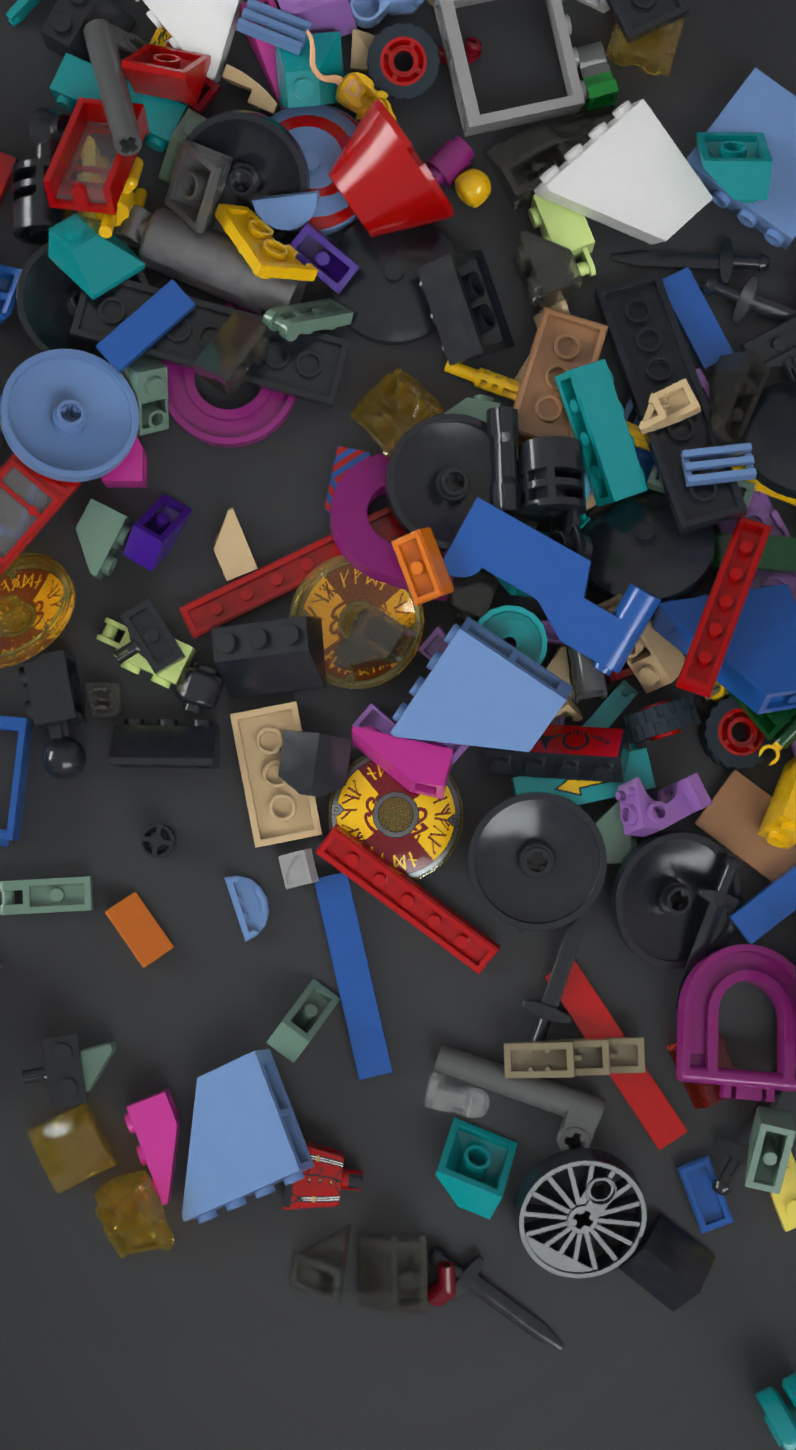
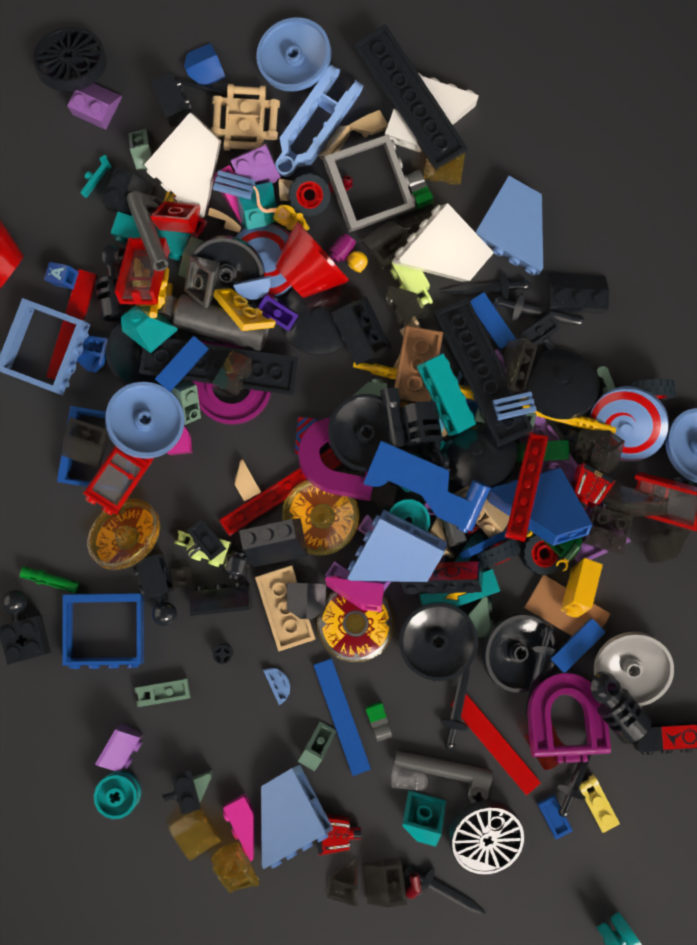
camera: 10 degrees left, 0 degrees up
(100, 536) = (169, 484): sand green slope -> none
(139, 929) = (218, 705): orange slope -> none
(156, 532) = (201, 478): dark purple slope -> none
(298, 868) = (304, 660): light grey tile -> none
(307, 317) = (273, 347): sand green plate -> none
(375, 641) = (334, 527): clear smoke slope -> none
(394, 408) = (328, 393): clear yellow slope -> none
(407, 898) = (368, 670): red tile -> none
(416, 990) = (379, 721): none -> leg
(422, 566) = (354, 483): orange slope -> none
(574, 1057) = (472, 749): dark tan slope -> none
(635, 703) = (483, 545): none -> blue tile
(647, 815) = (497, 609): medium lavender tile -> none
(669, 407) = (483, 375): tan slope -> none
(669, 1264) = (539, 858): black slope -> none
(737, 163) = (504, 232): teal slope -> none
(769, 1149) = (588, 788): sand green slope -> none

